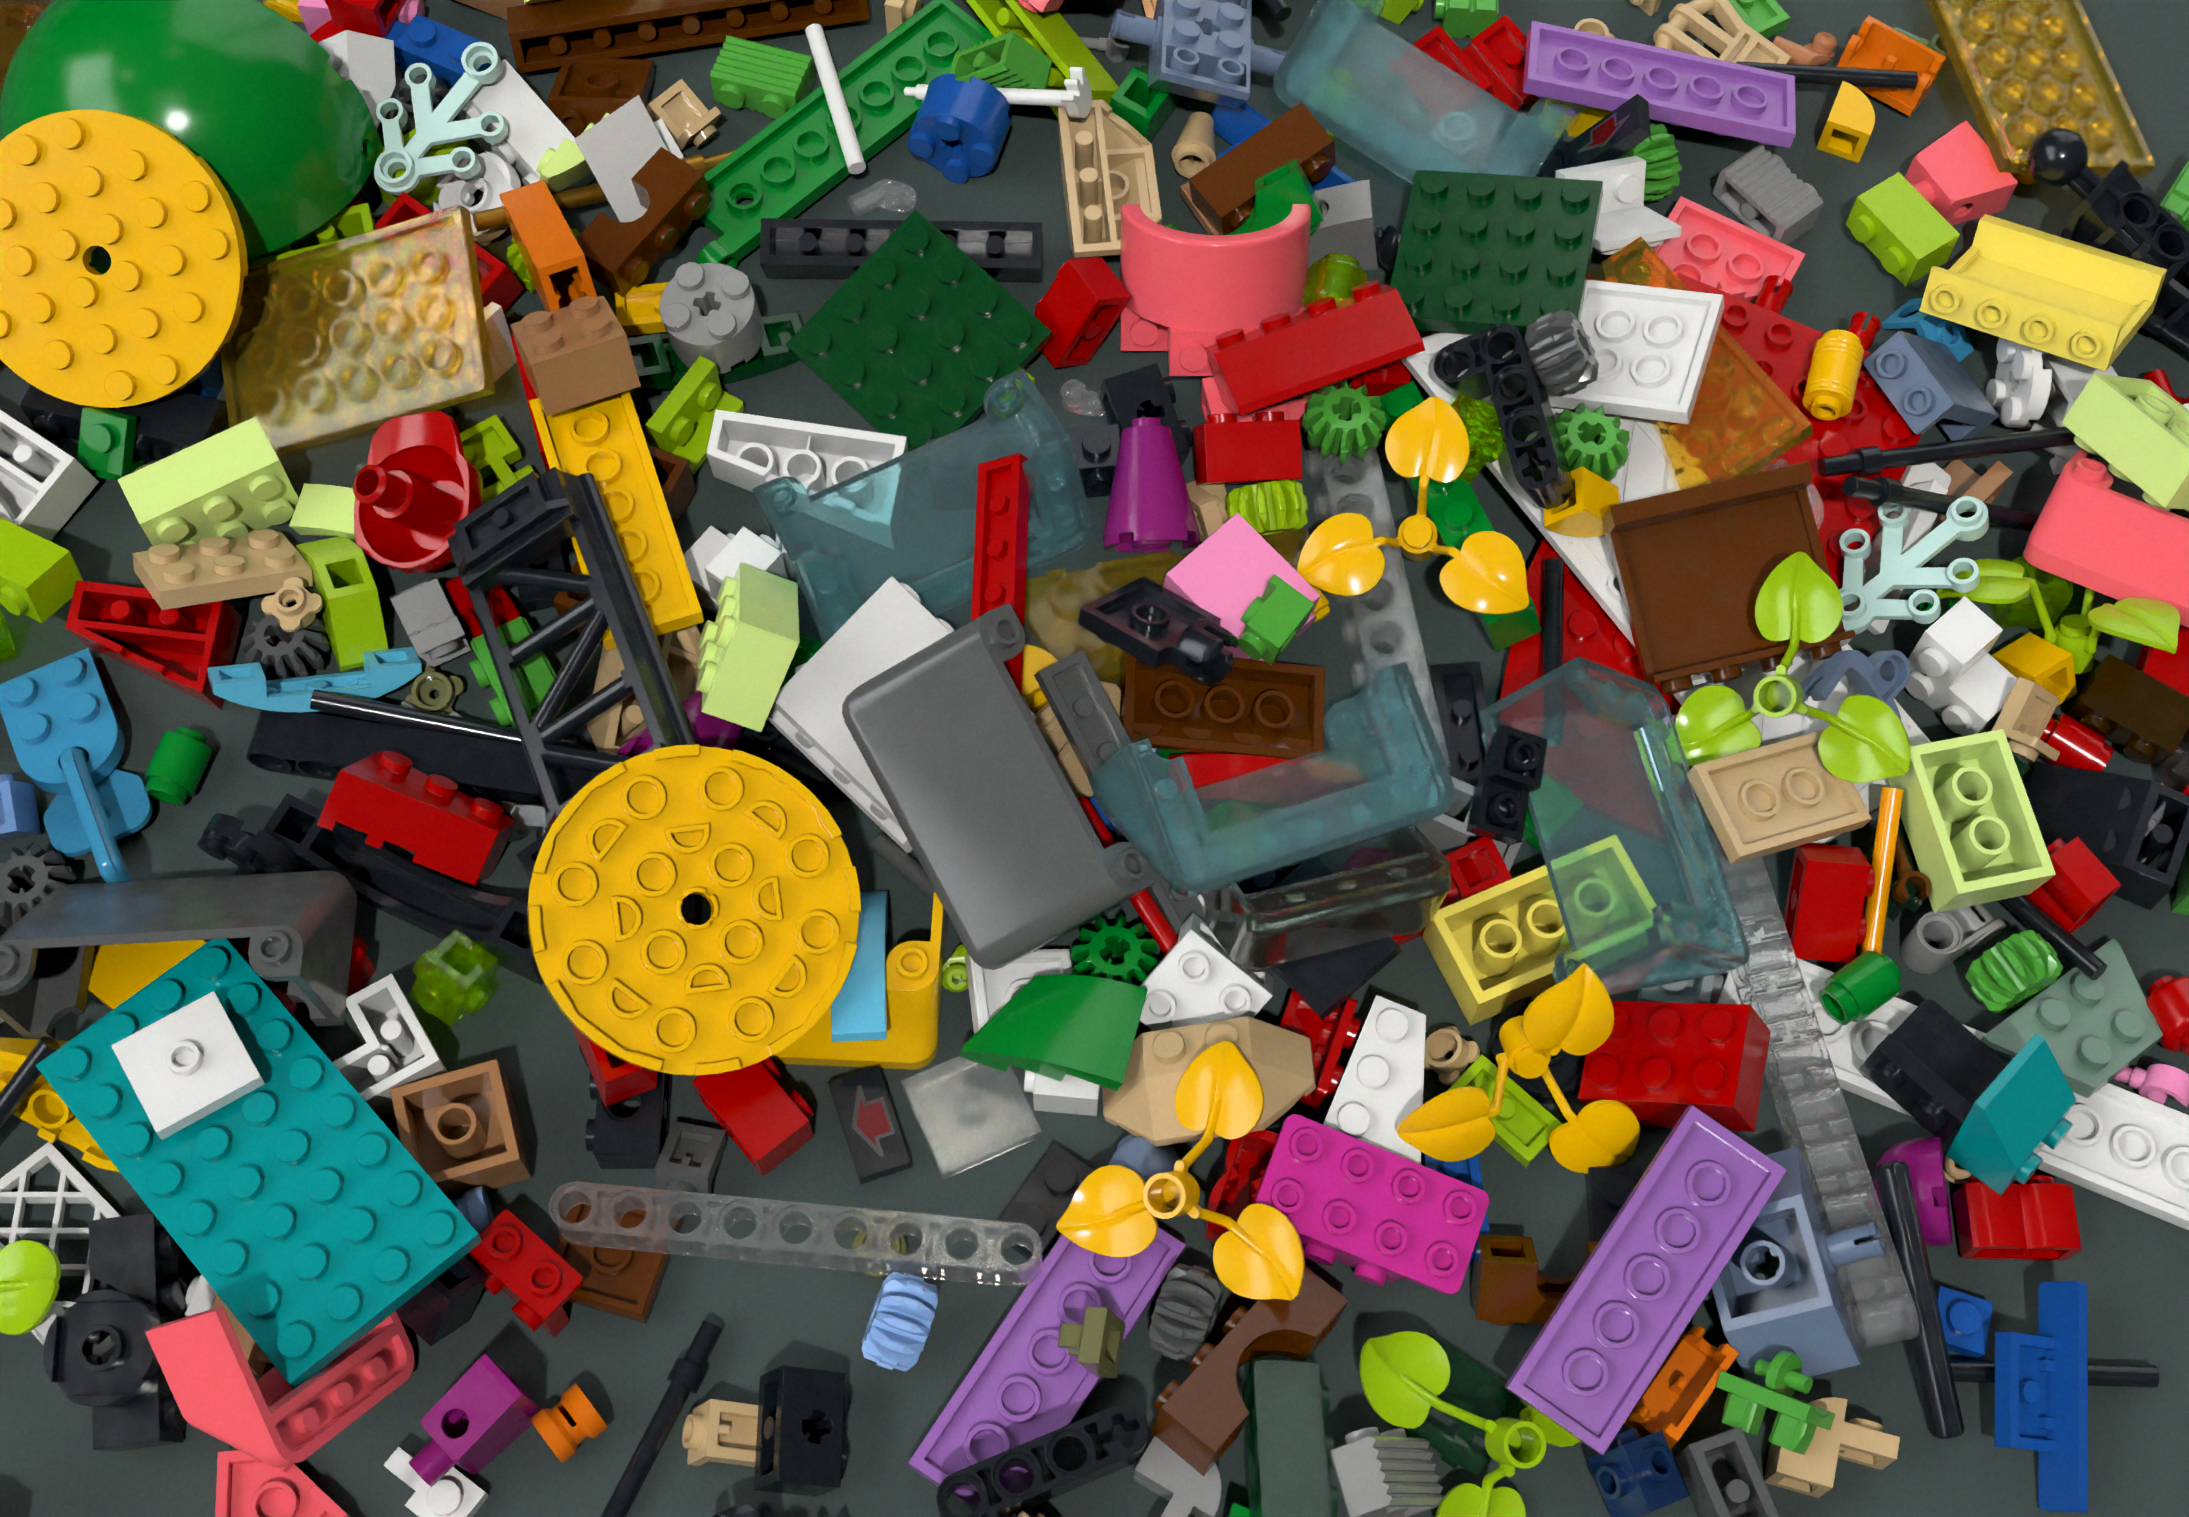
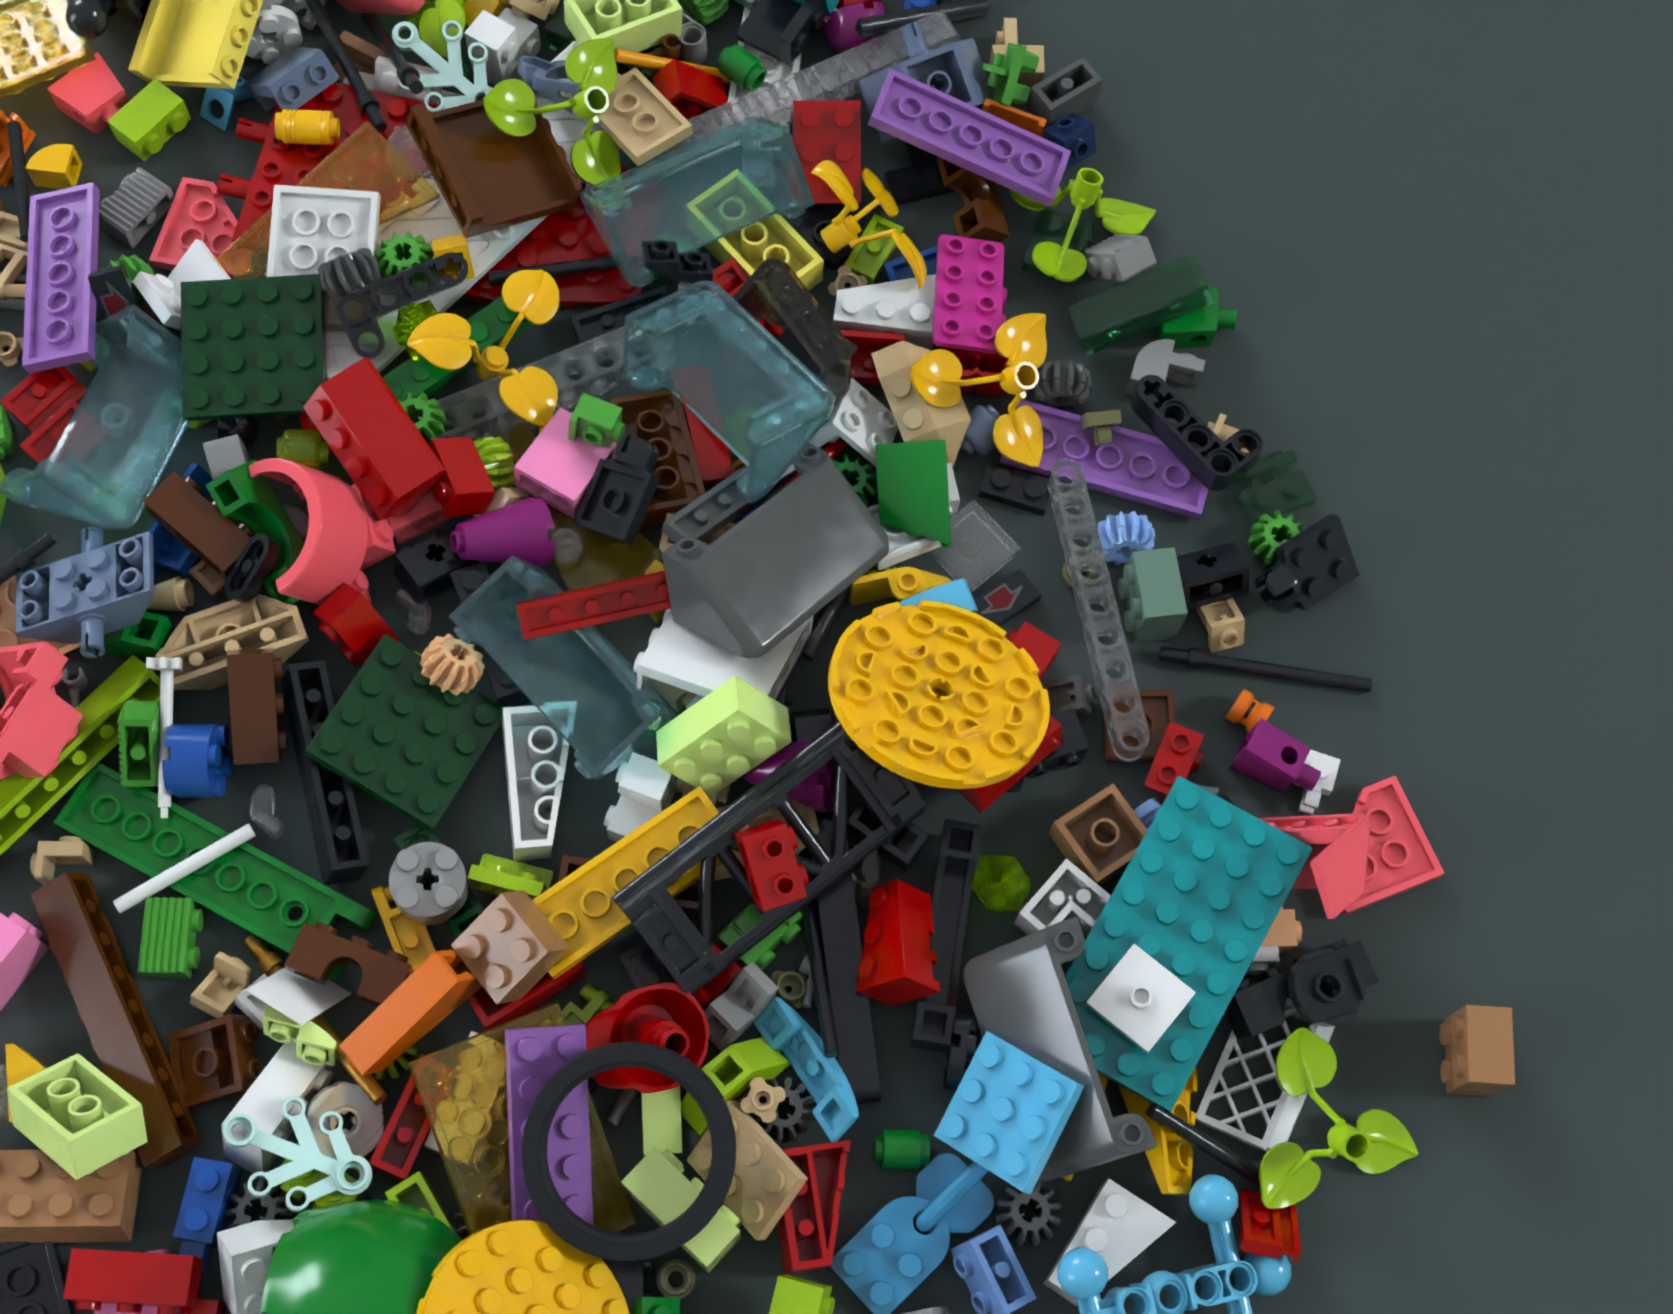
camera: 110 degrees left, 5 degrees up
(125, 856) = (1009, 1112): none -> medium azure plate
(215, 343) = (621, 1245): none -> black tyre
(342, 359) = (531, 1060): none -> medium lavender plate
(546, 645) = (772, 864): none -> red brick
(788, 1323) = (1153, 595): none -> sand green brick
(967, 382) = (452, 664): none -> light nougat gear
(1008, 185) = (255, 706): none -> reddish brown brick
(1120, 558) = (569, 537): none -> clear plate
(1183, 207) = (252, 568): none -> black plate
(1207, 1409) = (1120, 352): reddish brown arch -> none

